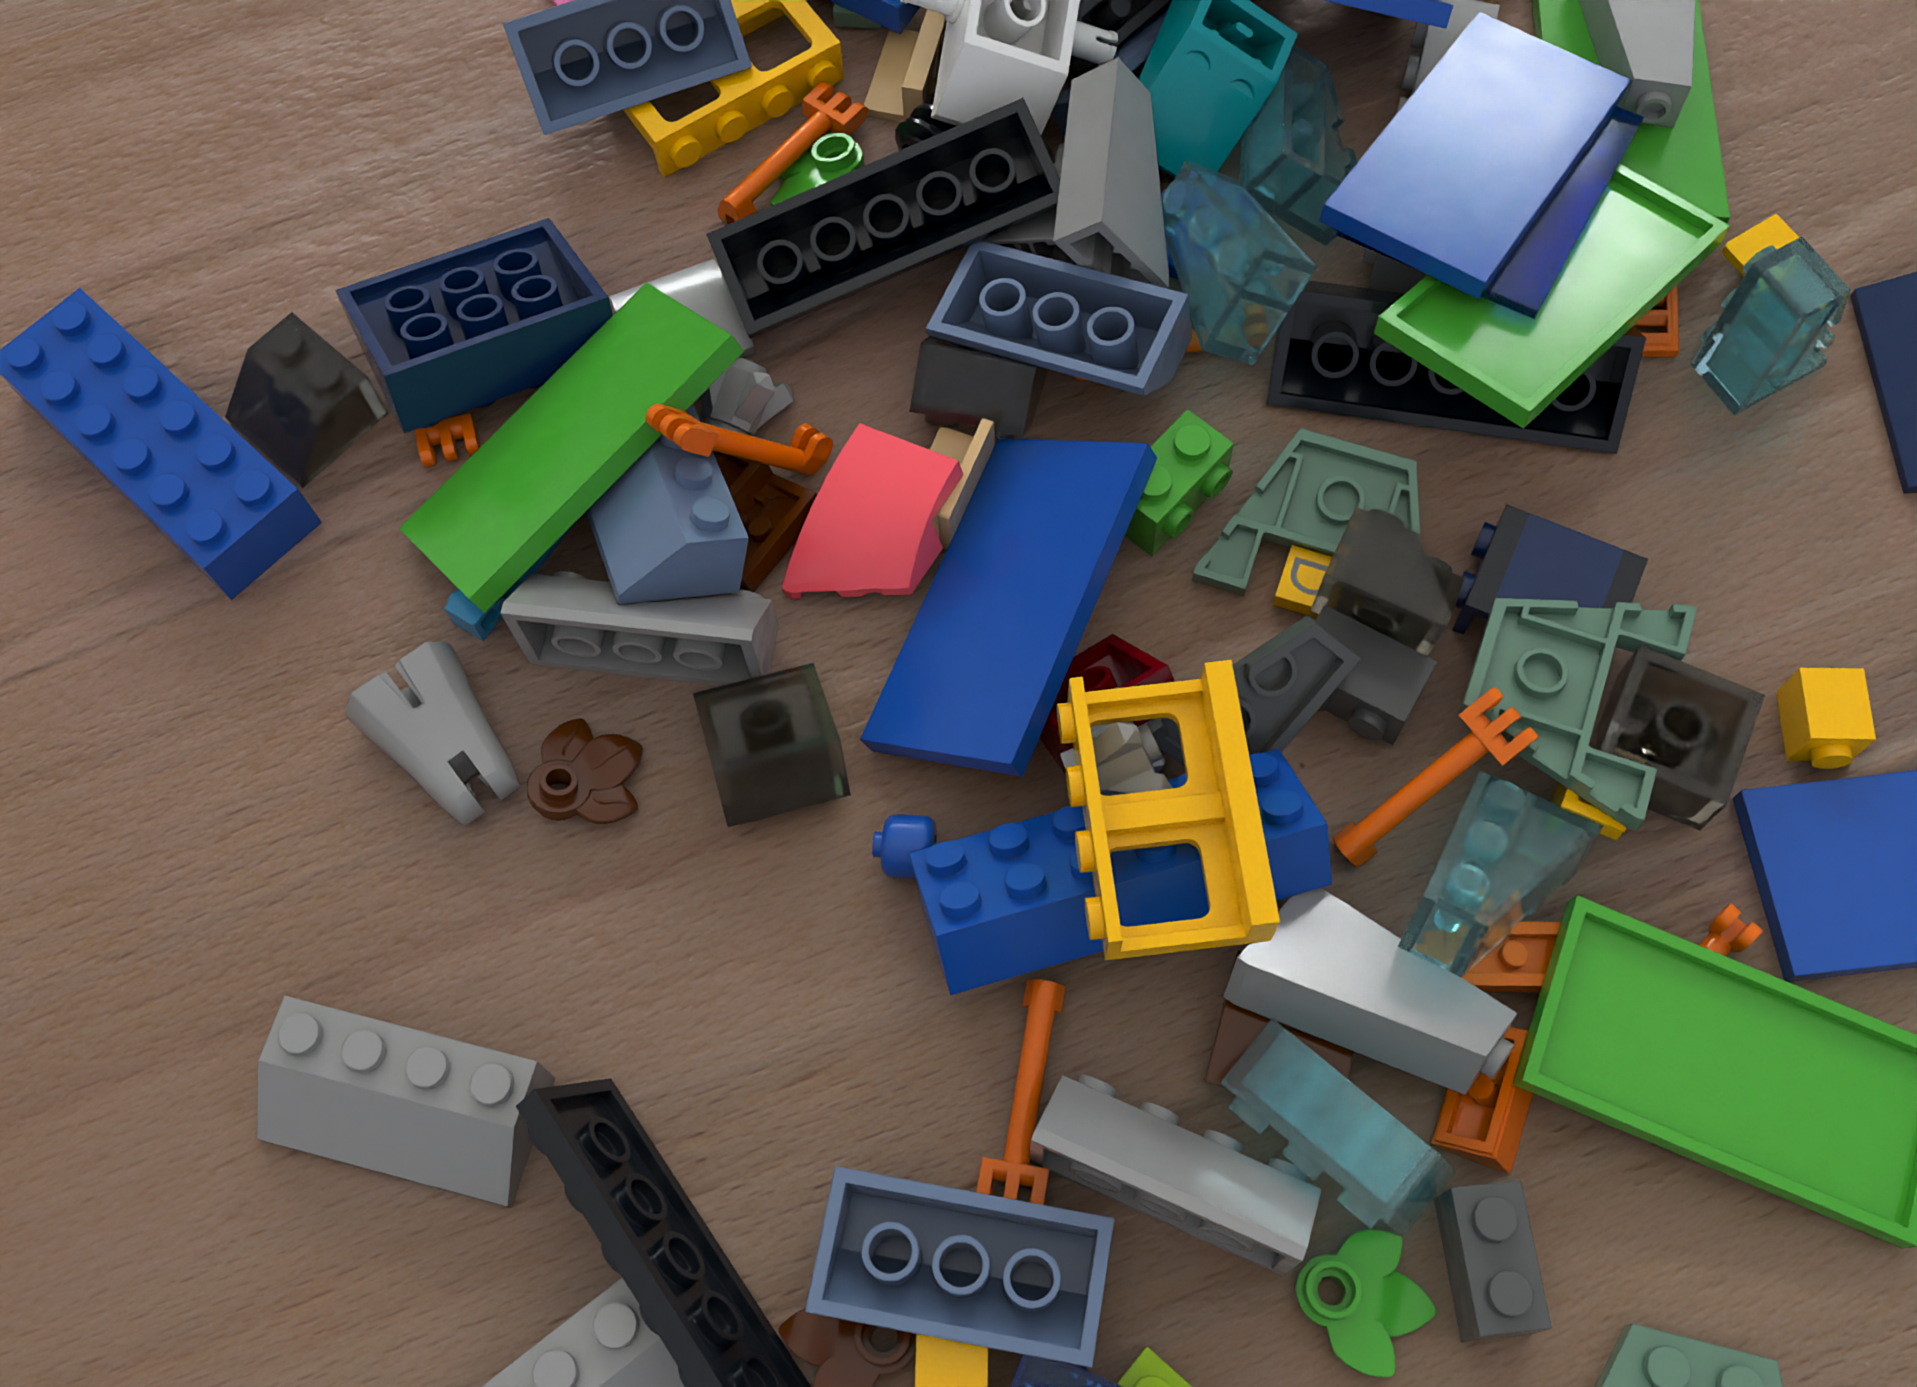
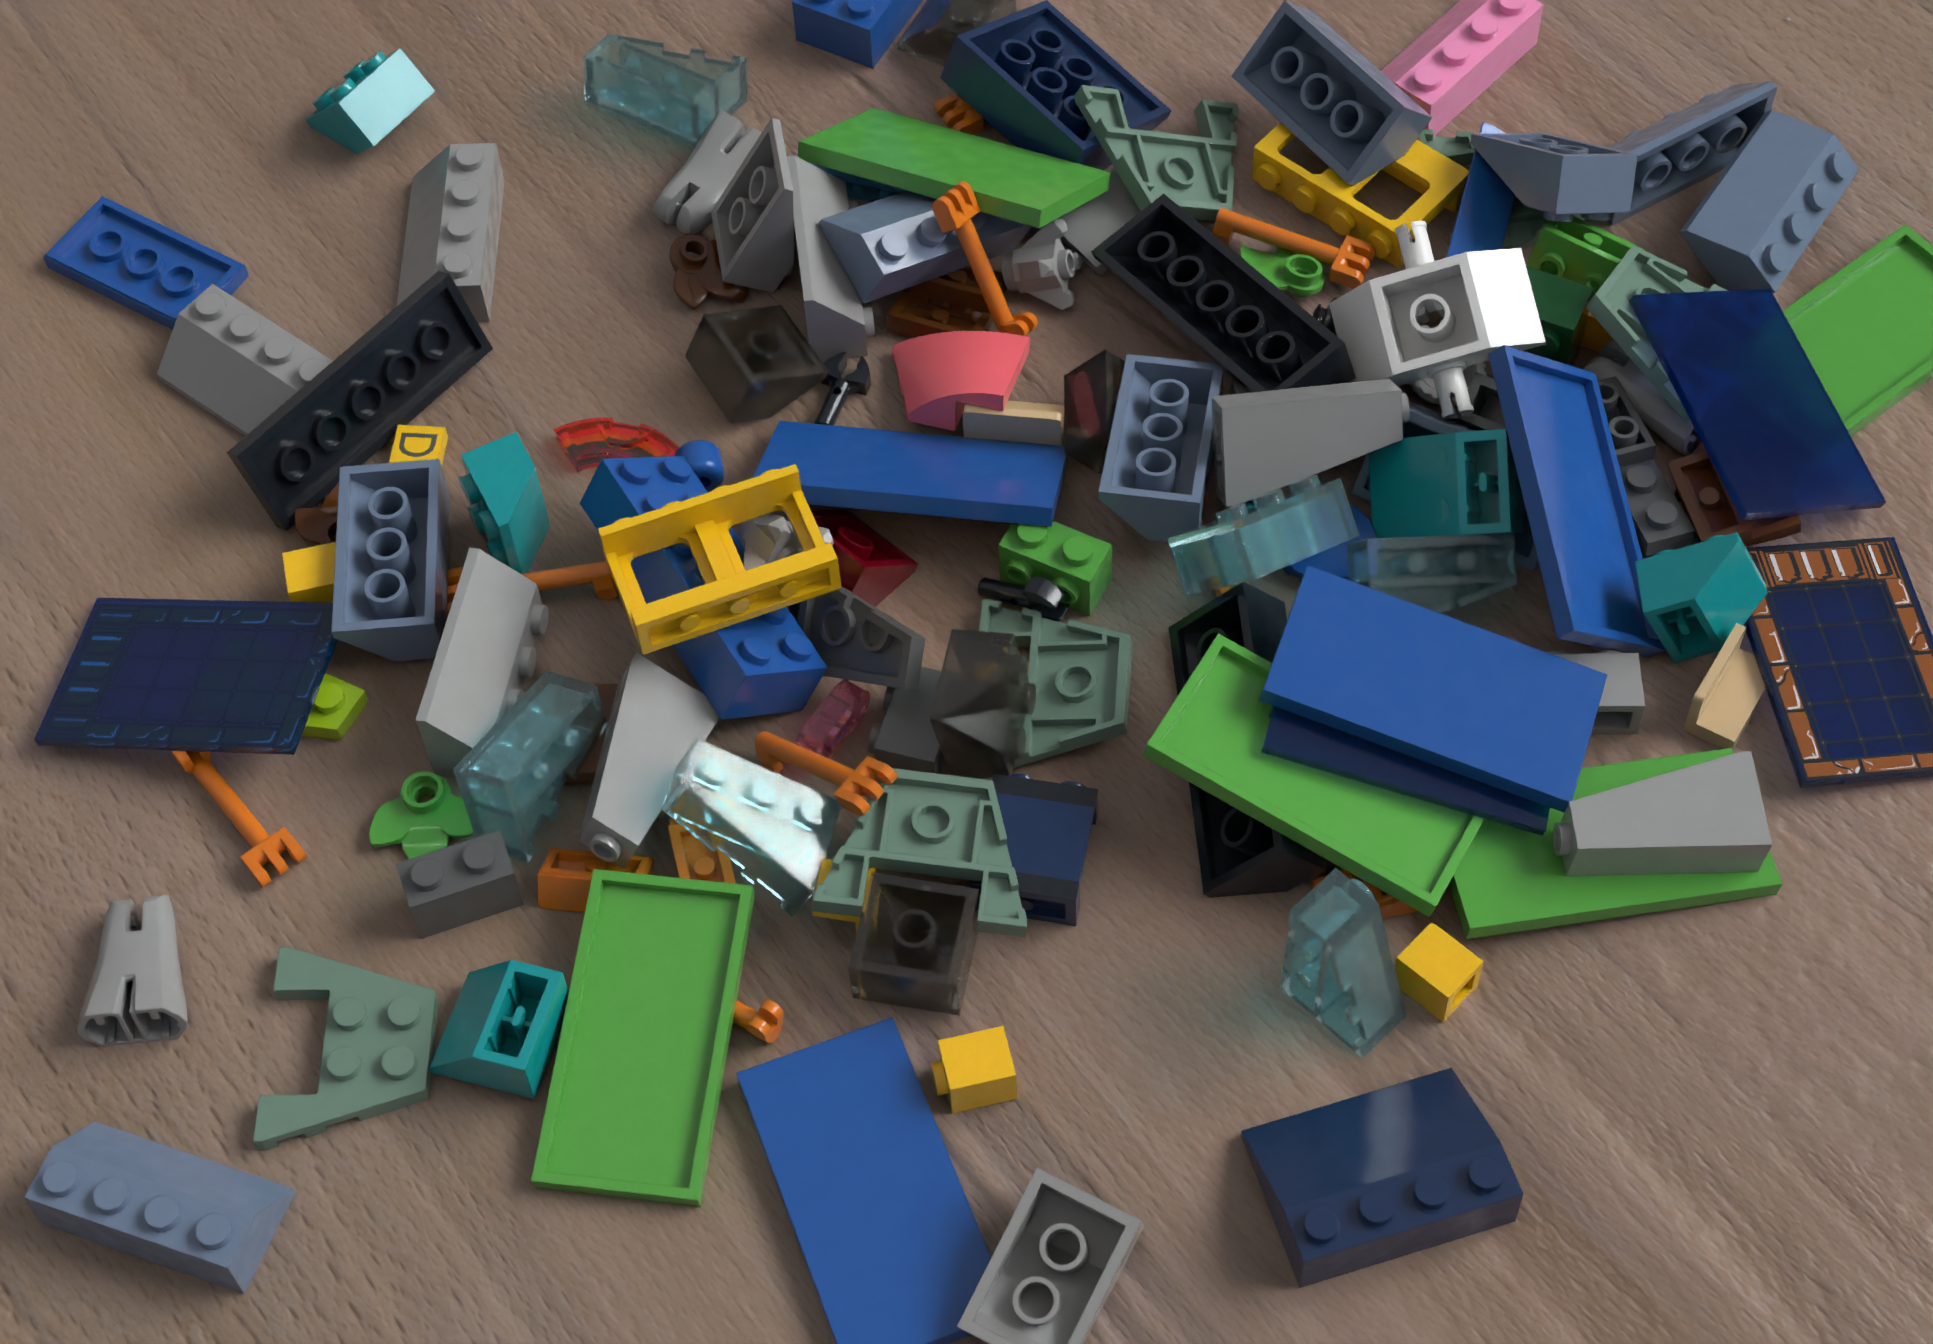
camera: 75 degrees right, 10 degrees down
(99, 1174) = (370, 101): none -> slope
(262, 766) = (661, 87): none -> clear light blue wedge
(558, 670) = (756, 216): none -> light grey slope
(638, 237) = (1183, 167): none -> sand green wing
(754, 1209) = (419, 443): none -> yellow tile
(828, 662) = (840, 388): none -> black bar
(828, 941) = (601, 438): none -> clear red tile
(924, 1089) = (506, 500): none -> teal slope
(1214, 513) = (1037, 595): none -> black bar
(1335, 772) = (834, 719): none -> clear pink beam
(1716, 1244) = (504, 1027): none -> teal slope

